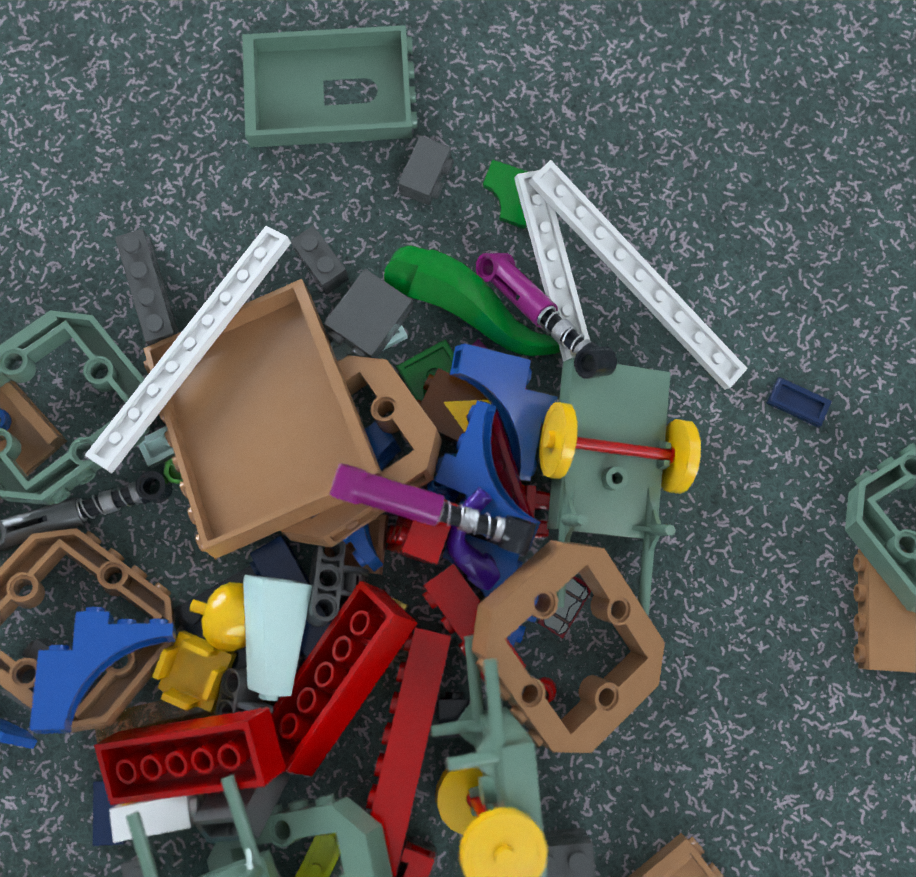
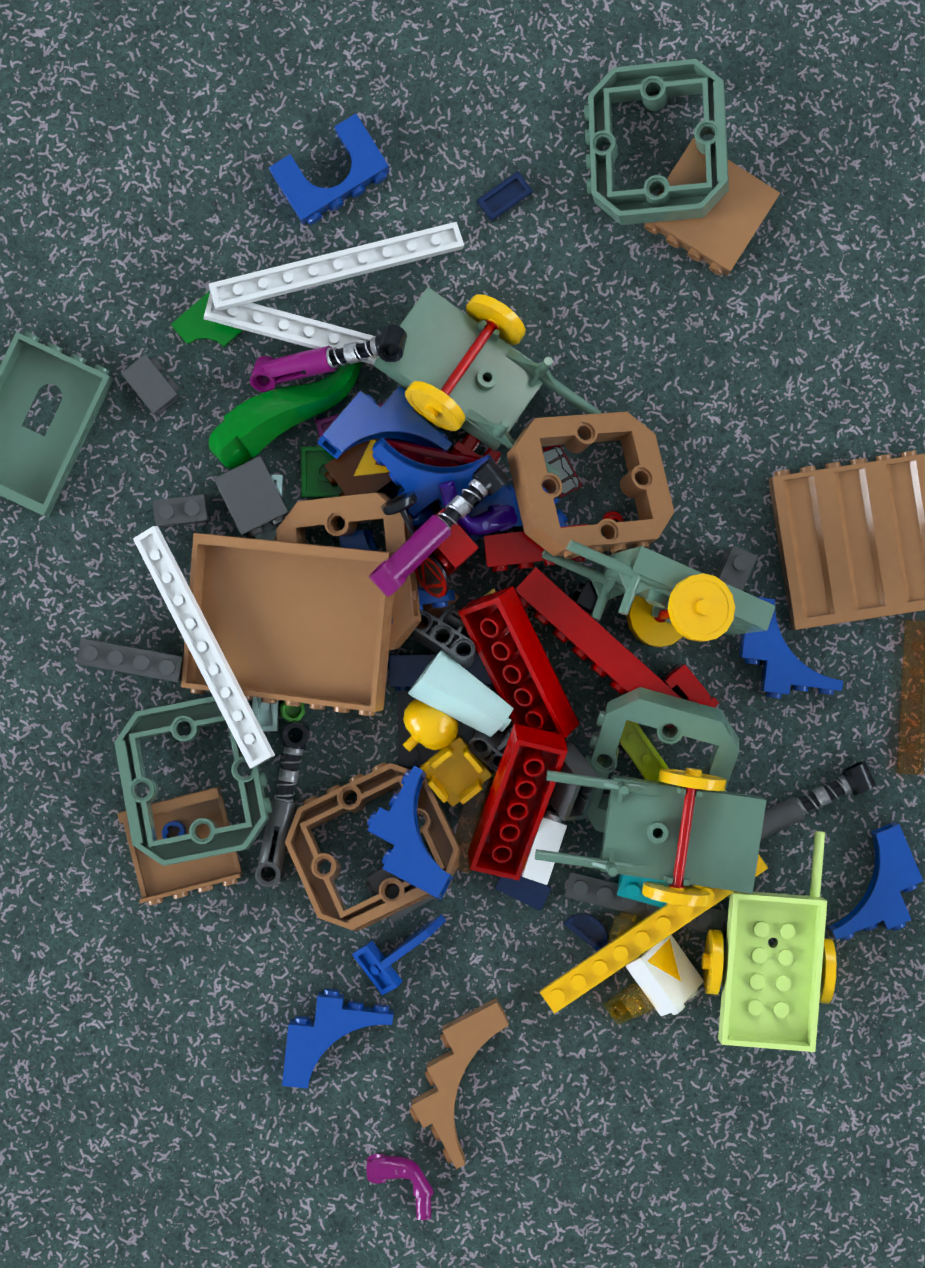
camera: 55 degrees left, 10 degrees up
(385, 524) = (429, 572): none -> black piece
(744, 257) = (312, 201): none -> blue arch

